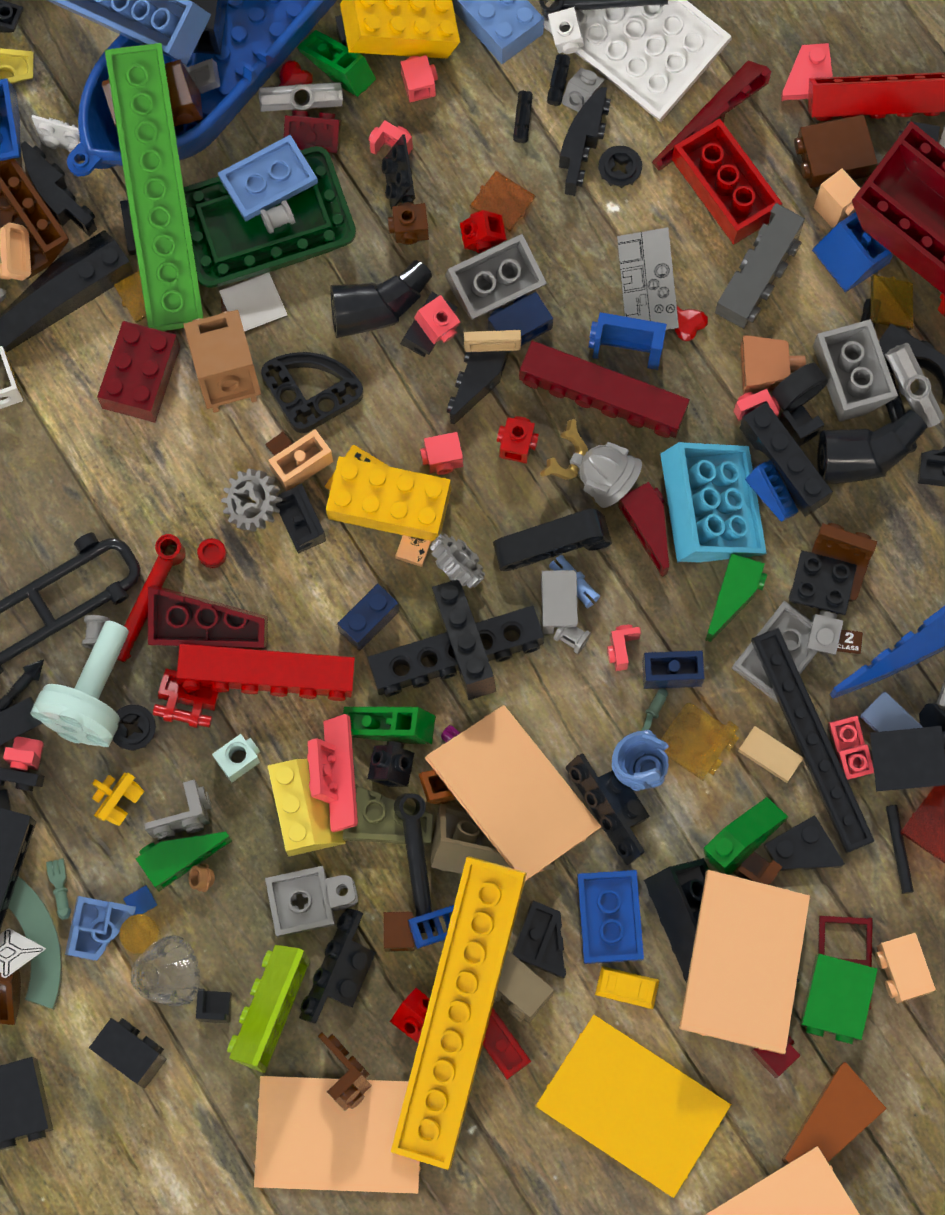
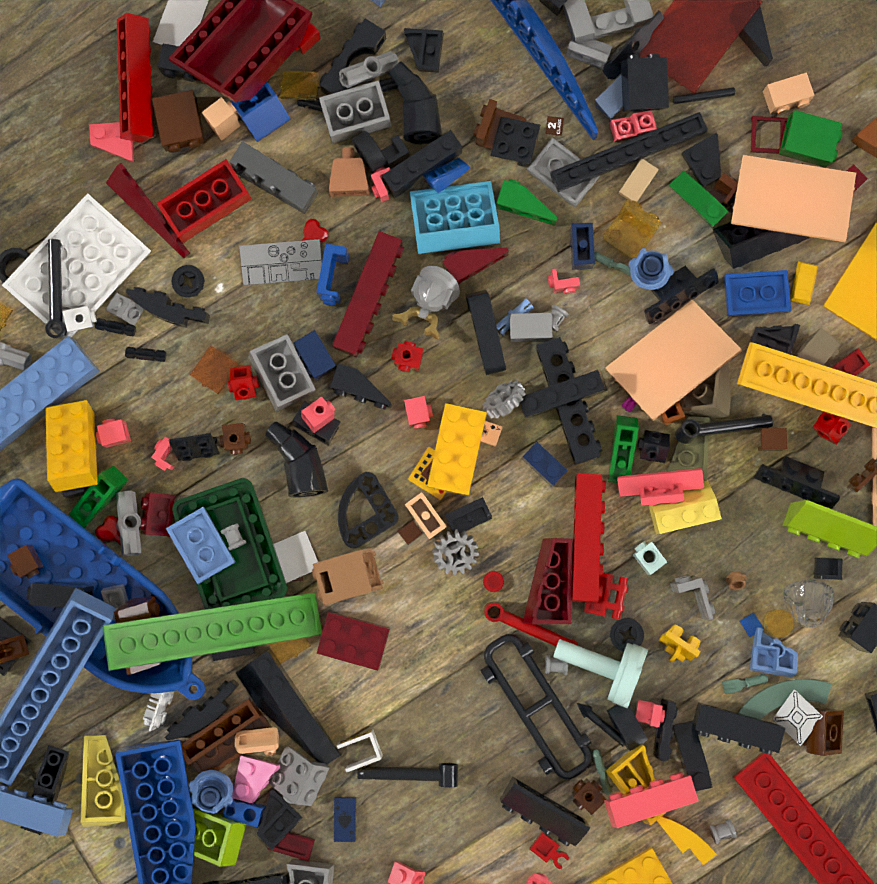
camera: 85 degrees left, 10 degrees up
(174, 858) = (725, 602): green slope -> none
(322, 899) = (746, 494): light grey plate -> none
(413, 924) = (756, 399): blue slope -> none
(492, 341) = (336, 373): tan tile -> none
(825, 633) = (552, 140): light grey bracket -> none

